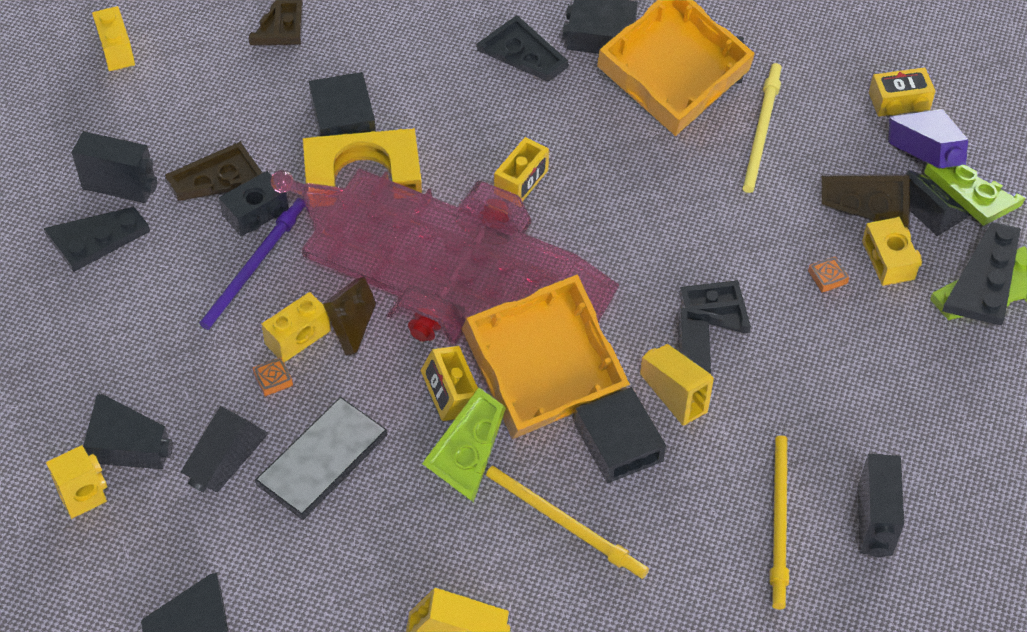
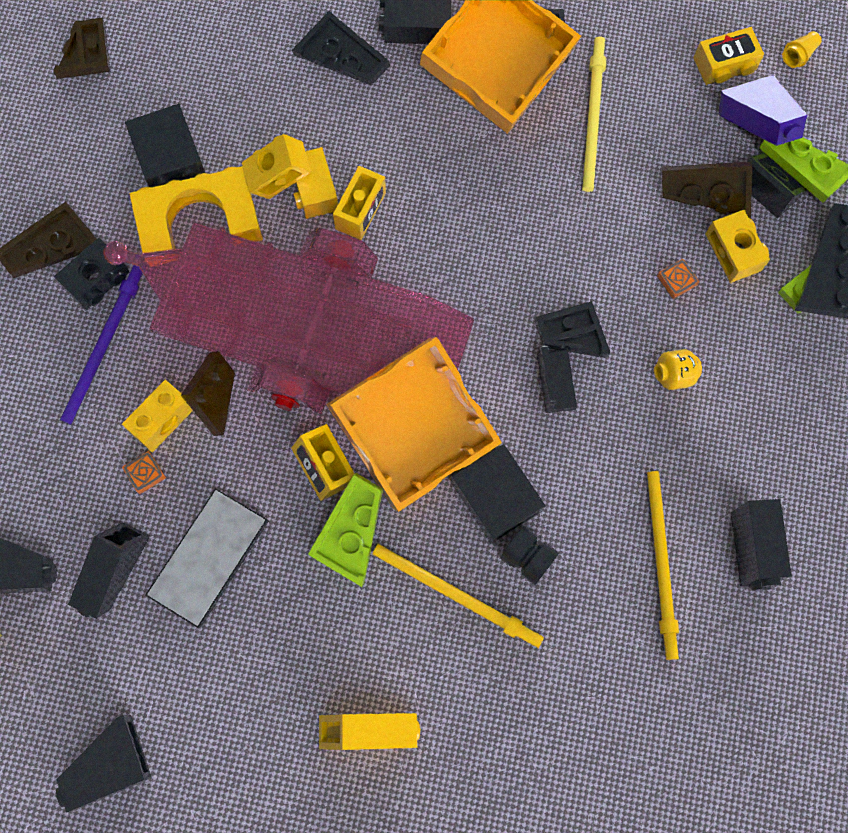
camera: 10 degrees left, 20 degrees up
(446, 130) = (276, 166): none -> yellow brick
(478, 151) = (316, 190): none -> yellow brick
(639, 486) = (526, 553): none -> black wheel
(678, 382) = (546, 427): yellow slope -> none
(817, 348) = (678, 369): none -> yellow head
(974, 95) = (800, 50): none -> yellow cone

